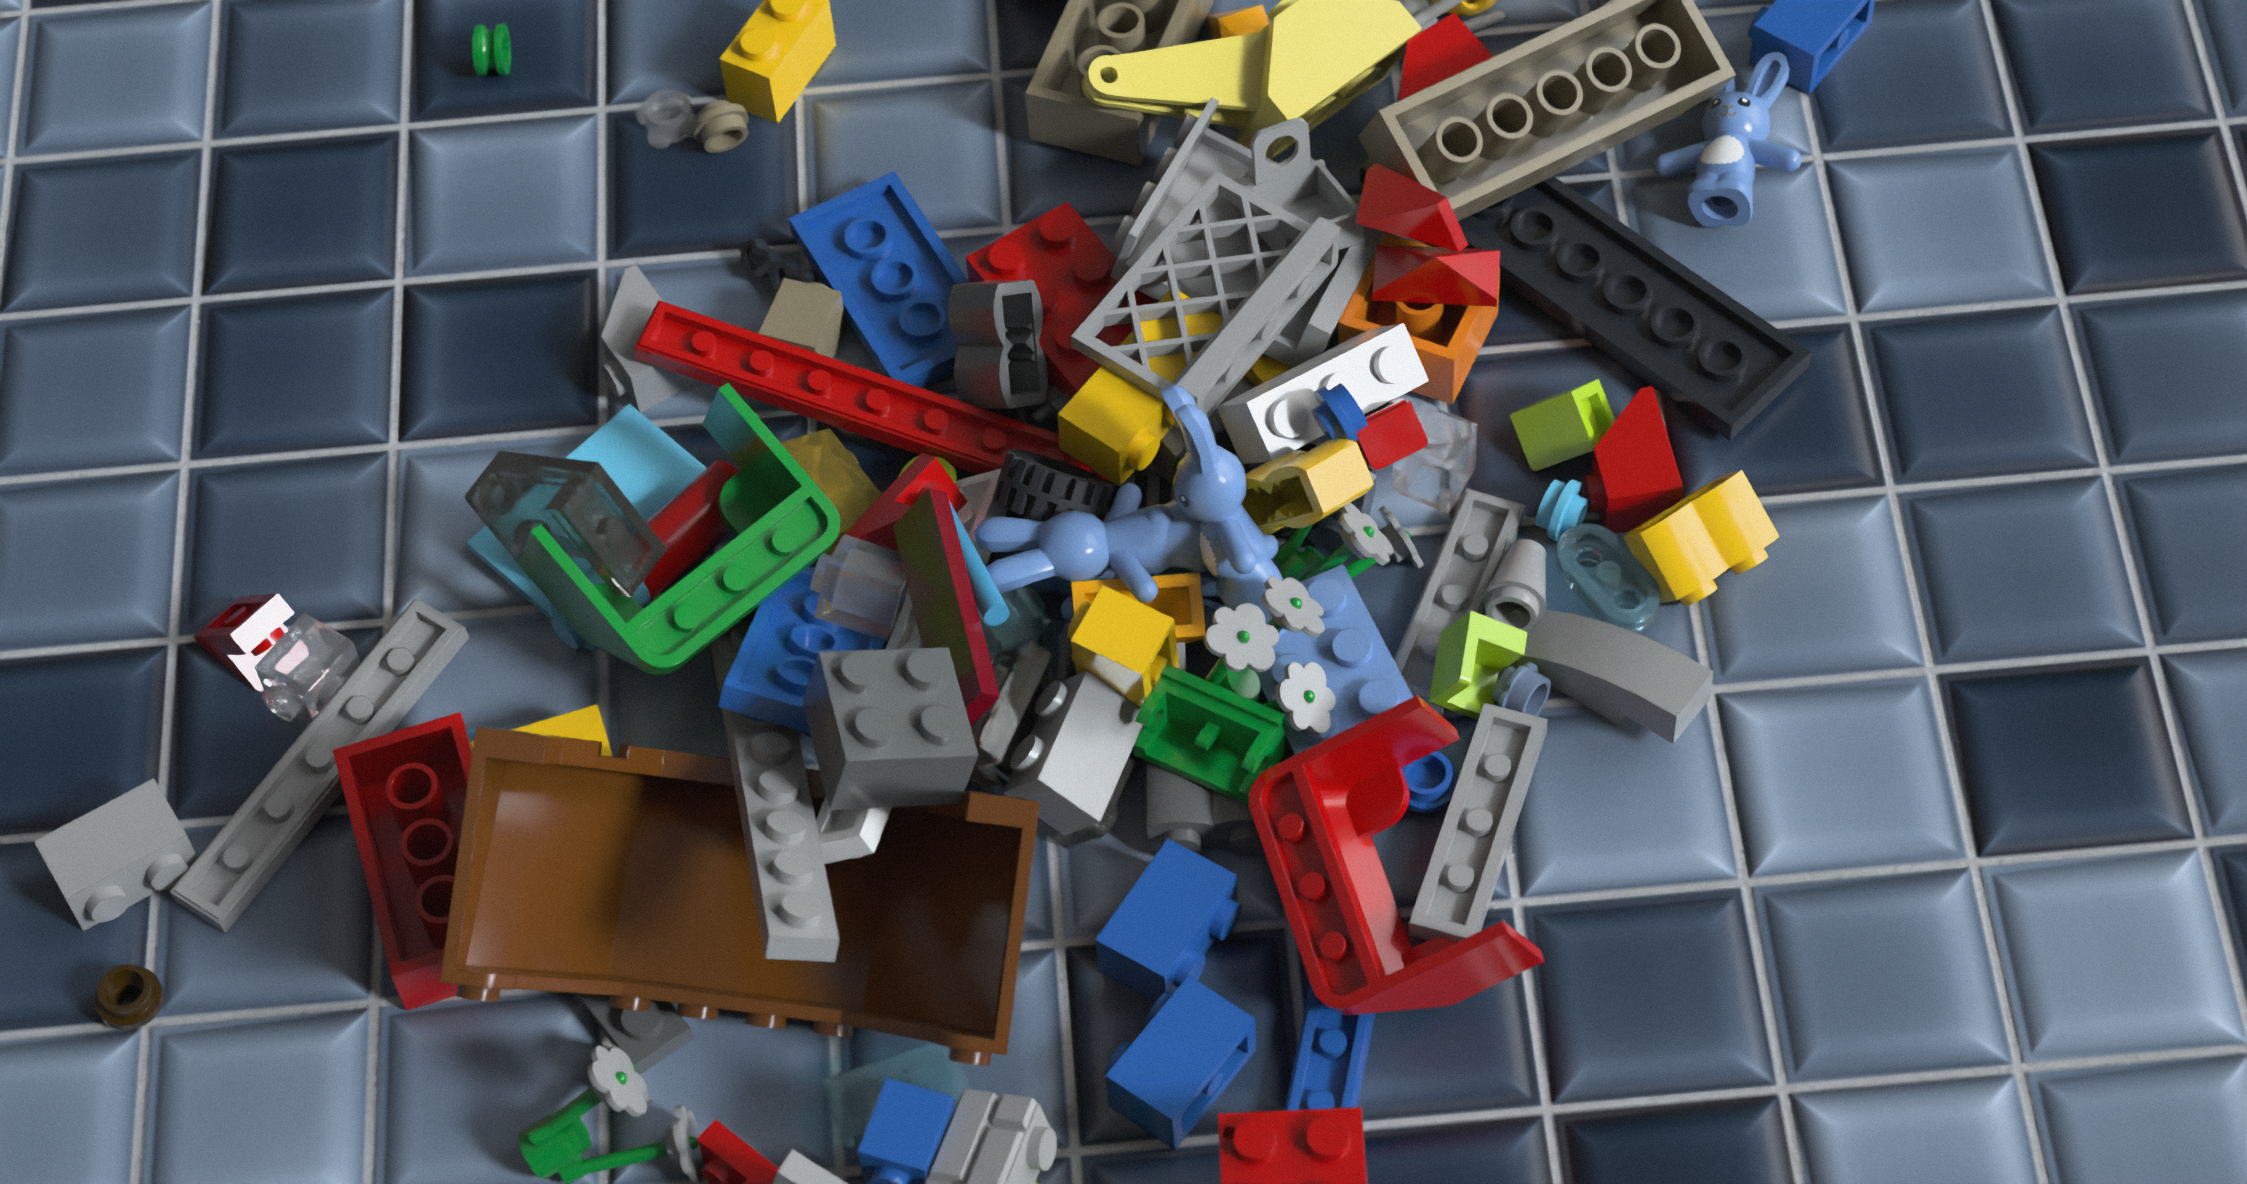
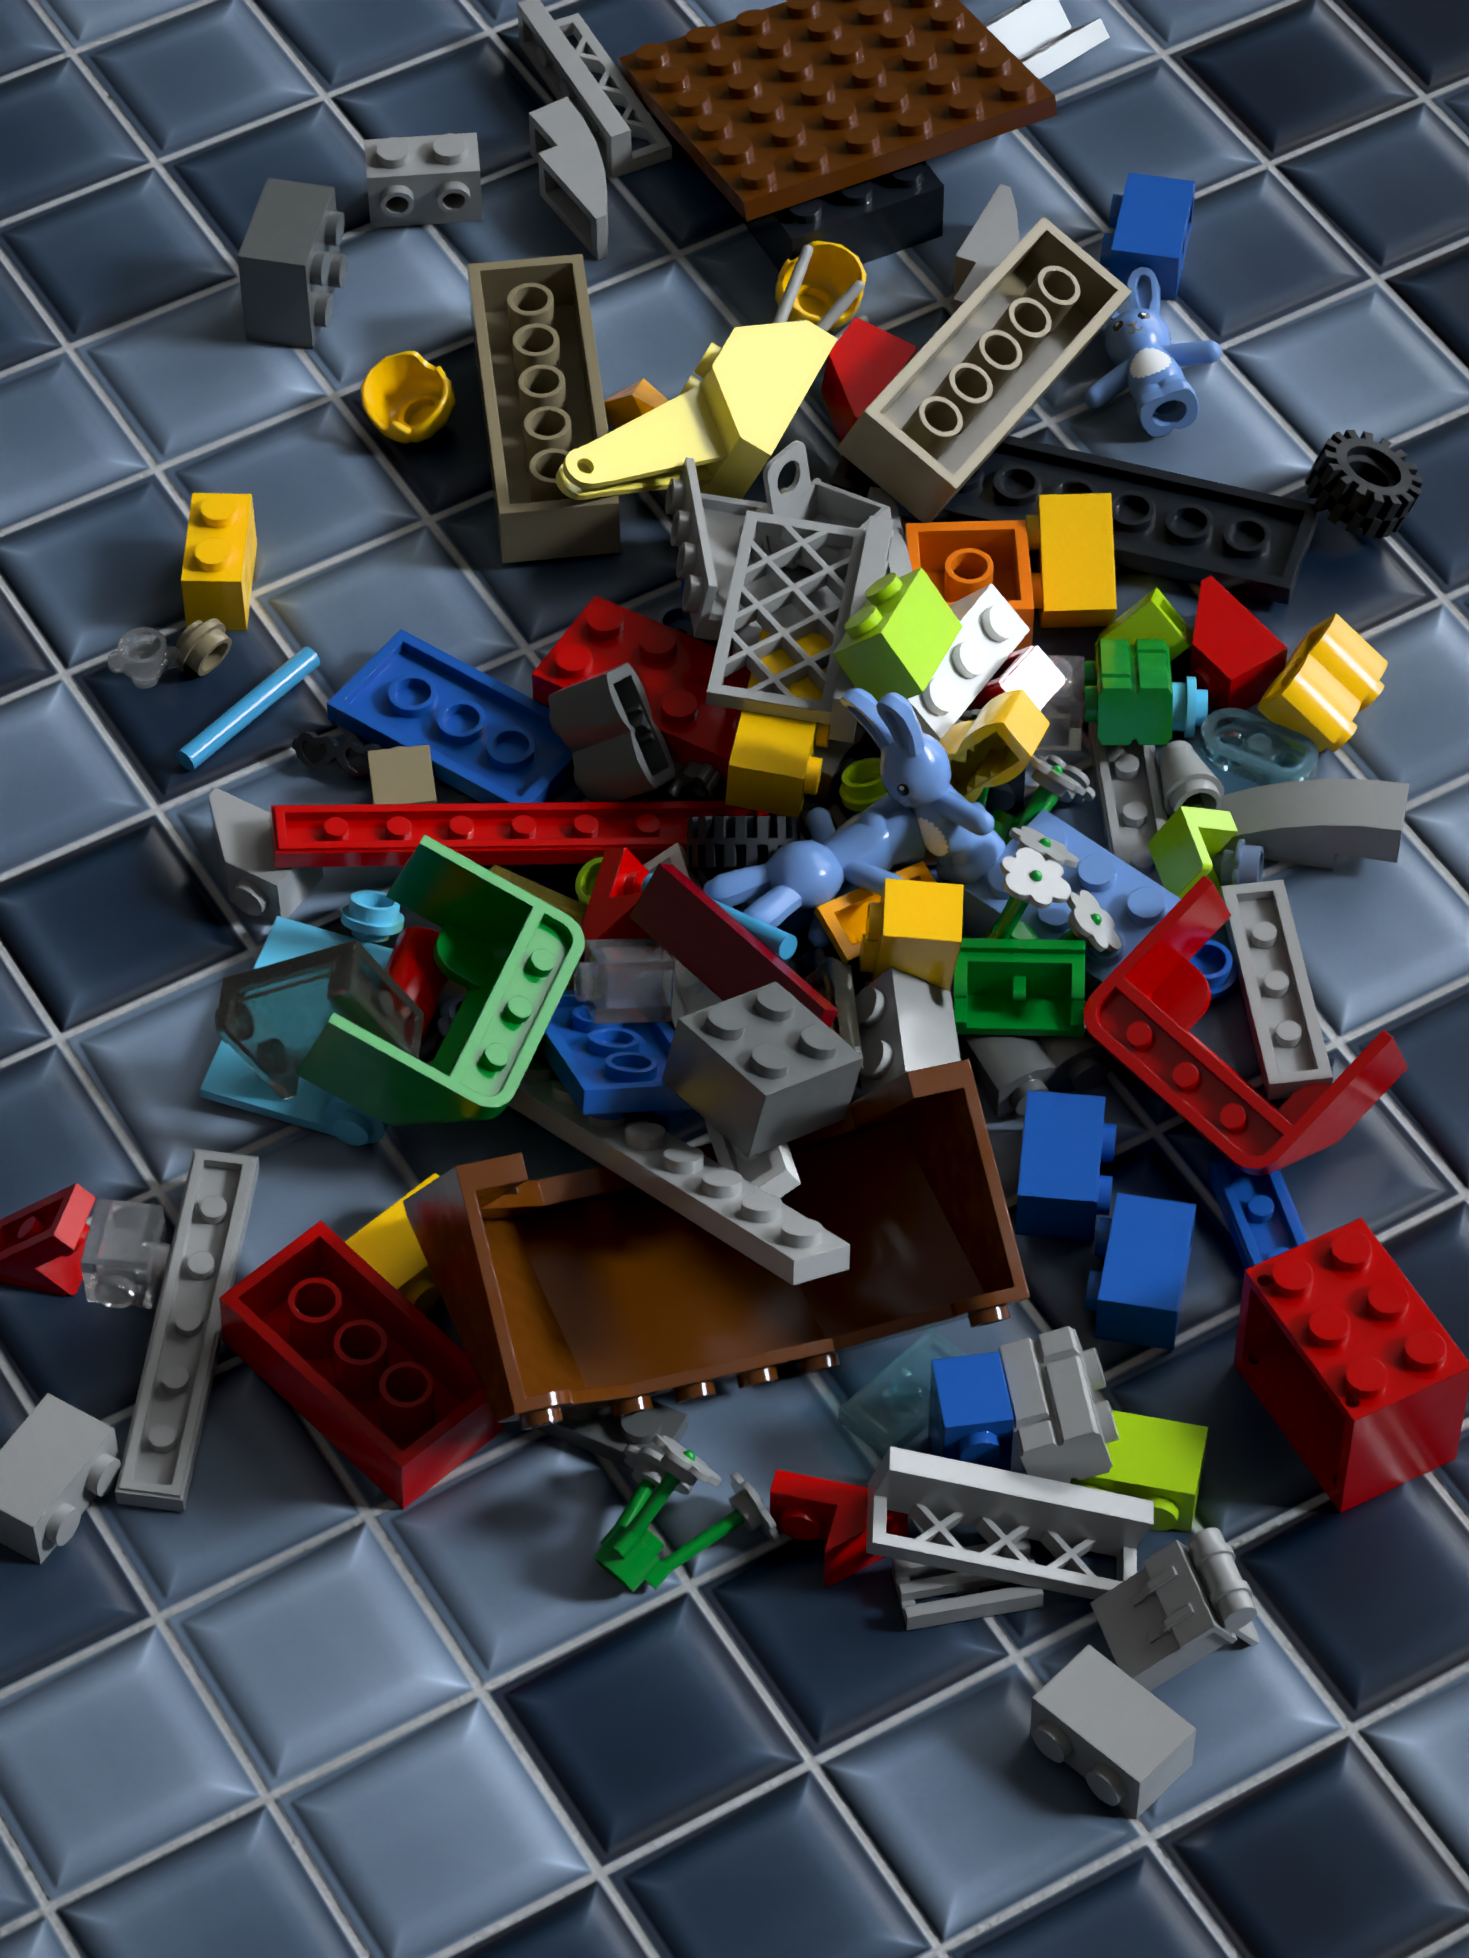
camera: 30 degrees left, 5 degrees down
(124, 982) = (129, 1582): dark brown plate -> none
(698, 439) = (372, 916): none -> medium azure plate
(730, 198) = (248, 709): none -> dark azure bar
(1263, 349) = (897, 636): none -> lime brick
(1338, 413) = (988, 672): blue plate -> none
(1408, 209) = (933, 487): red slope -> none
(1436, 275) = (975, 543): red slope -> none
(1507, 475) = (1130, 692): none -> green brick
(1533, 323) = (1073, 560): none -> yellow brick
(1883, 327) = (1363, 483): none -> black tyre

